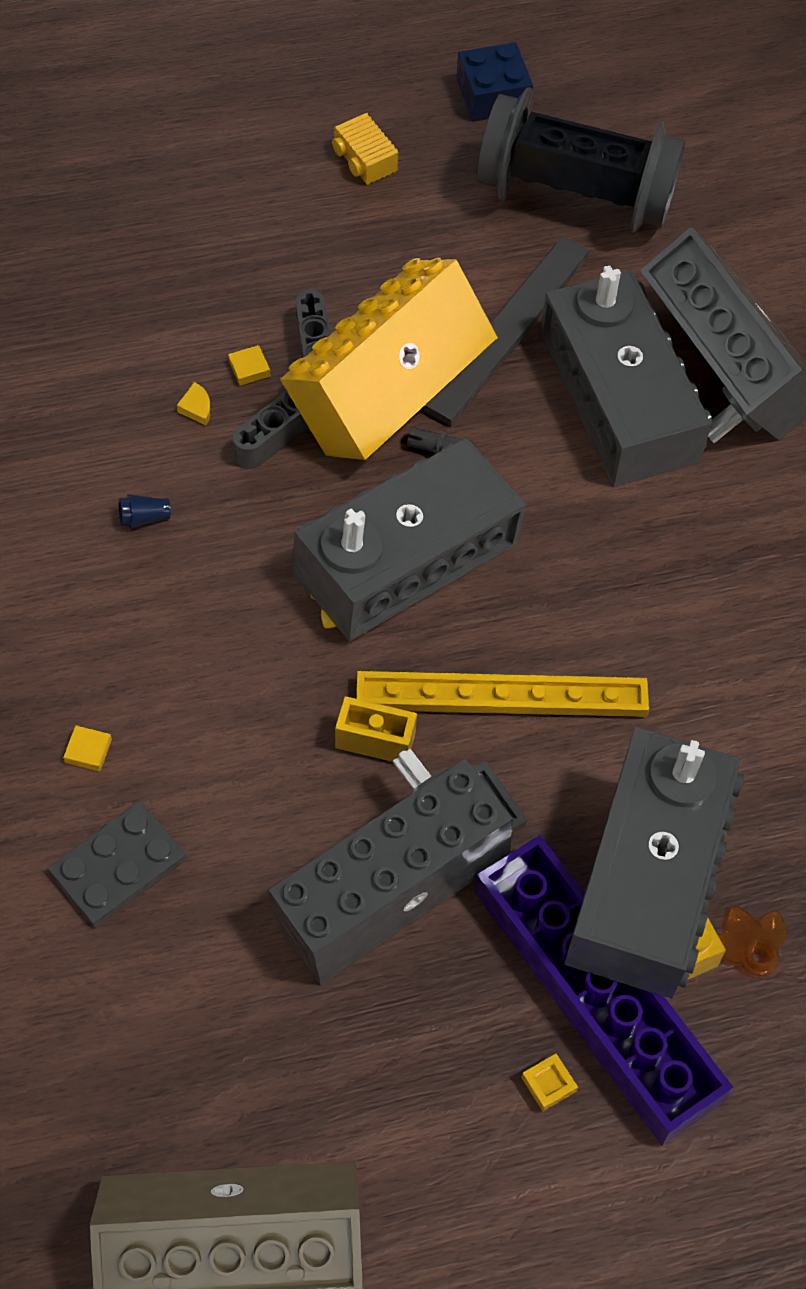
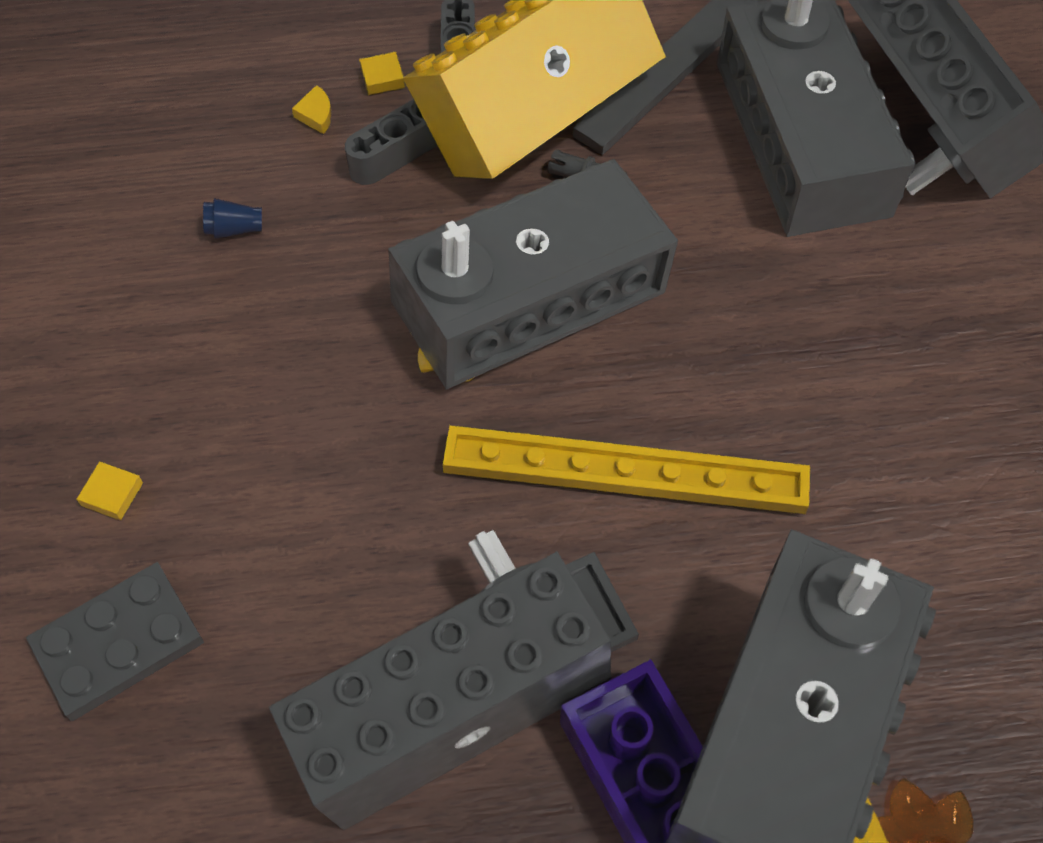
camera: 10 degrees right, 0 degrees up
(374, 729) = (458, 499): yellow brick -> none

